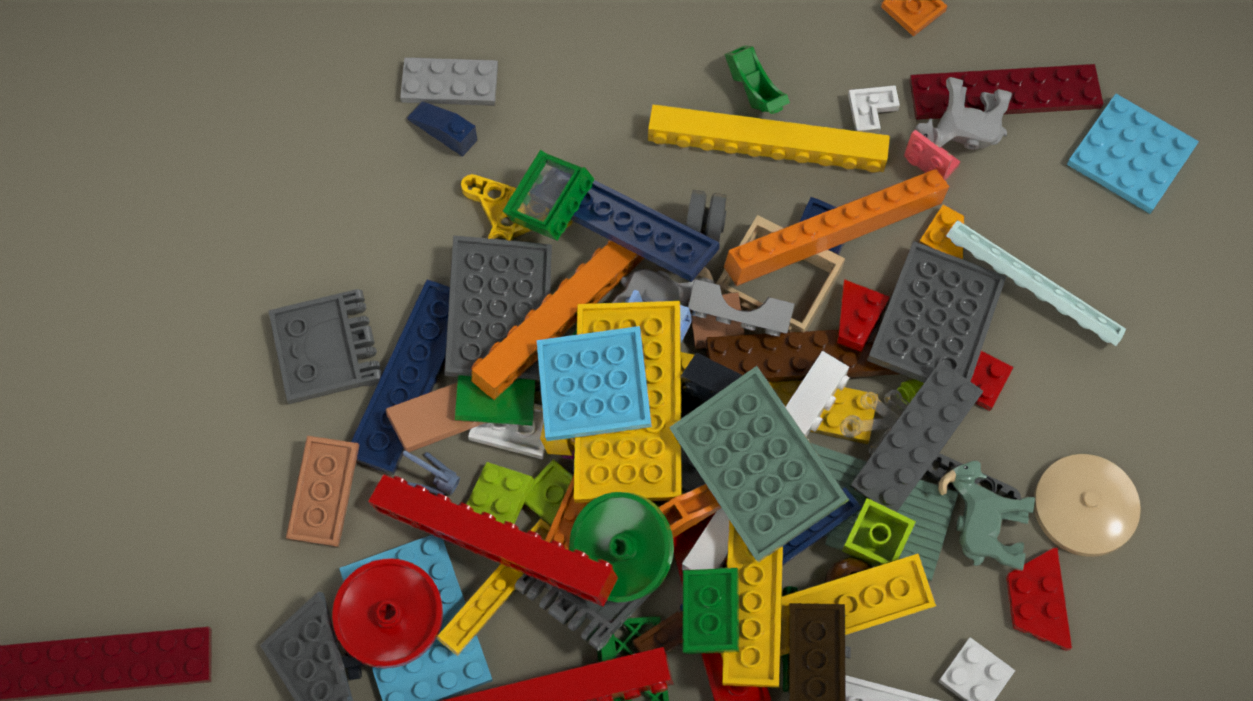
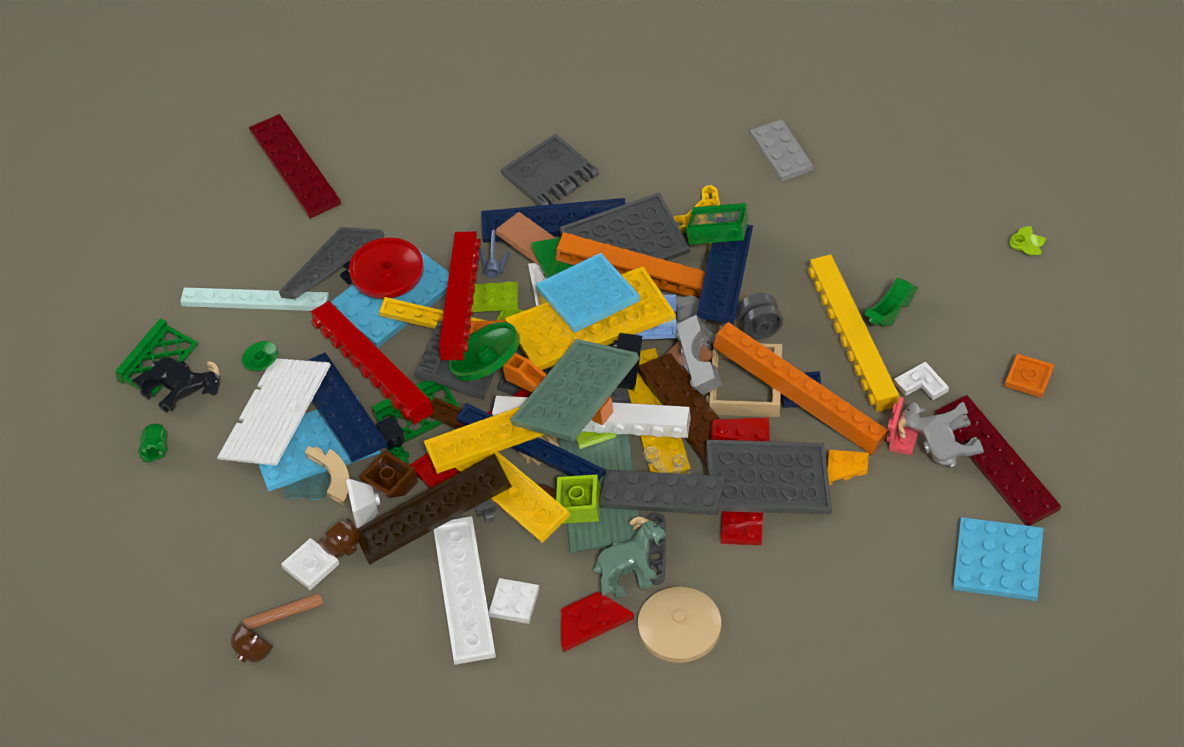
camera: 70 degrees right, 15 degrees down
(322, 491) = (452, 211): nougat tile -> none
(445, 127) = (742, 162): dark blue slope -> none
(711, 610) = (467, 415): green tile -> none
(1037, 283) = (836, 529): light aqua plate -> none

